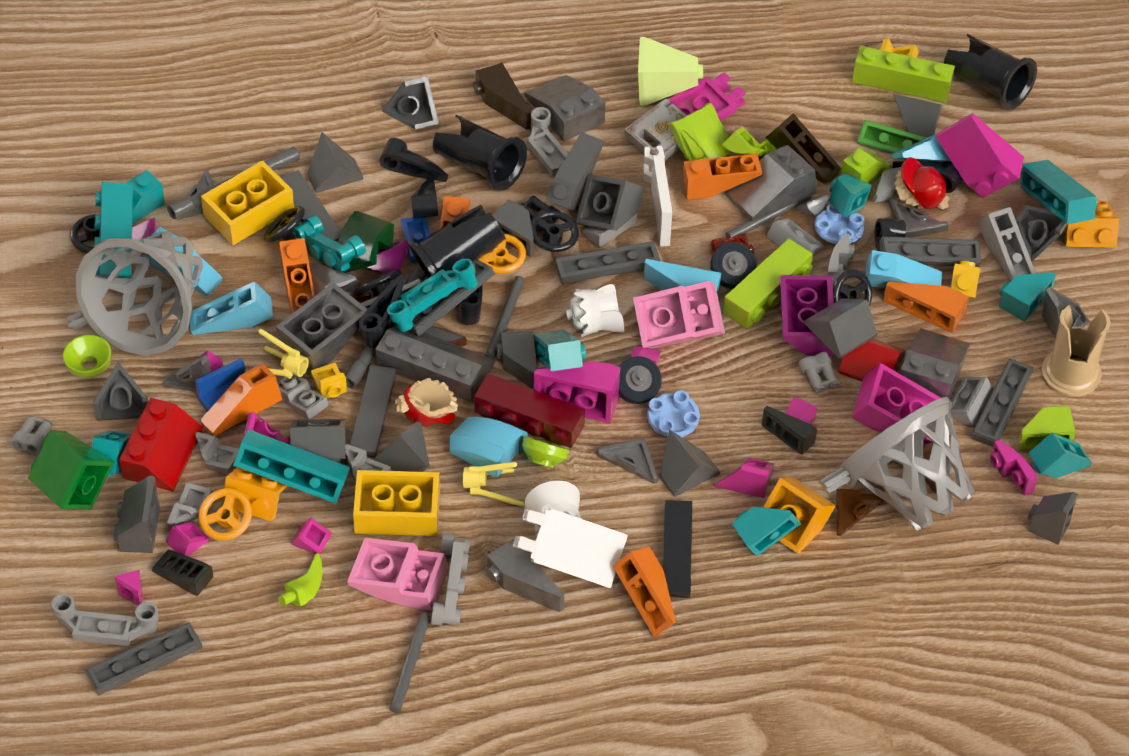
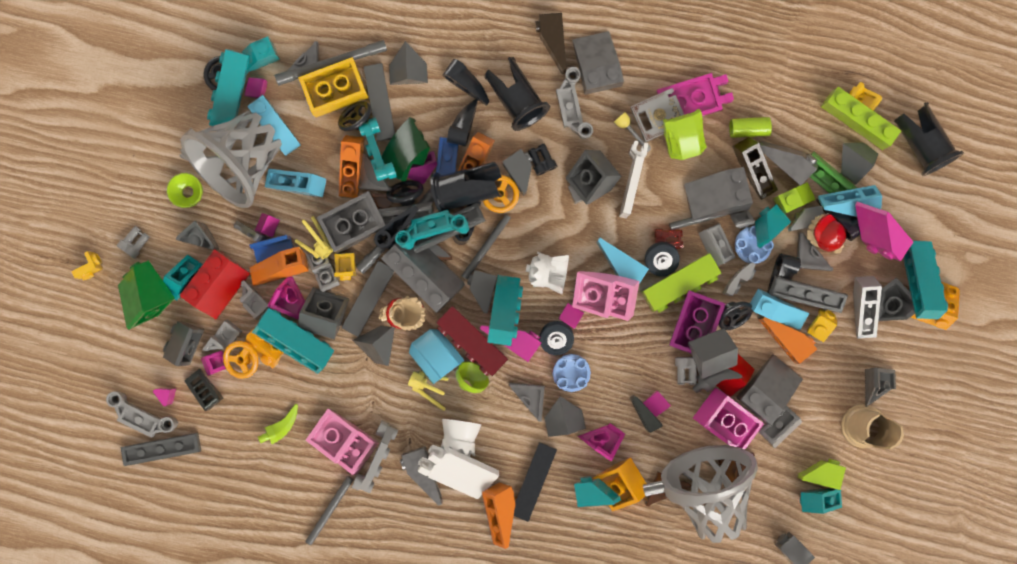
camera: 20 degrees right, 35 degrees up
(311, 536) = (295, 389): dark pink slope -> none
(358, 460) = (348, 348): light grey slope -> none
(396, 503) = (356, 390): yellow brick -> none
(413, 104) = (484, 29): dark grey slope -> none
(553, 233) = (559, 183): black piece -> none
(572, 176) = (577, 142): dark grey slope -> none
(605, 262) = (574, 224): dark grey plate -> none
(622, 150) = (624, 122): none -> light yellow hinge
(665, 71) = (680, 62): yellowish green slope -> none
(715, 175) = (685, 173): orange slope -> none
(744, 143) = (715, 154): lime slope -> none
(771, 116) = (750, 127): none -> lime pin
(844, 131) = (793, 162): none -> flat silver slope
(853, 366) = (711, 381): none -> dark grey bar
(1002, 402) = (803, 437): dark grey tile -> none
(1012, 463) = (783, 491): dark pink slope -> none
(1025, 293) = (859, 354): teal slope -> none

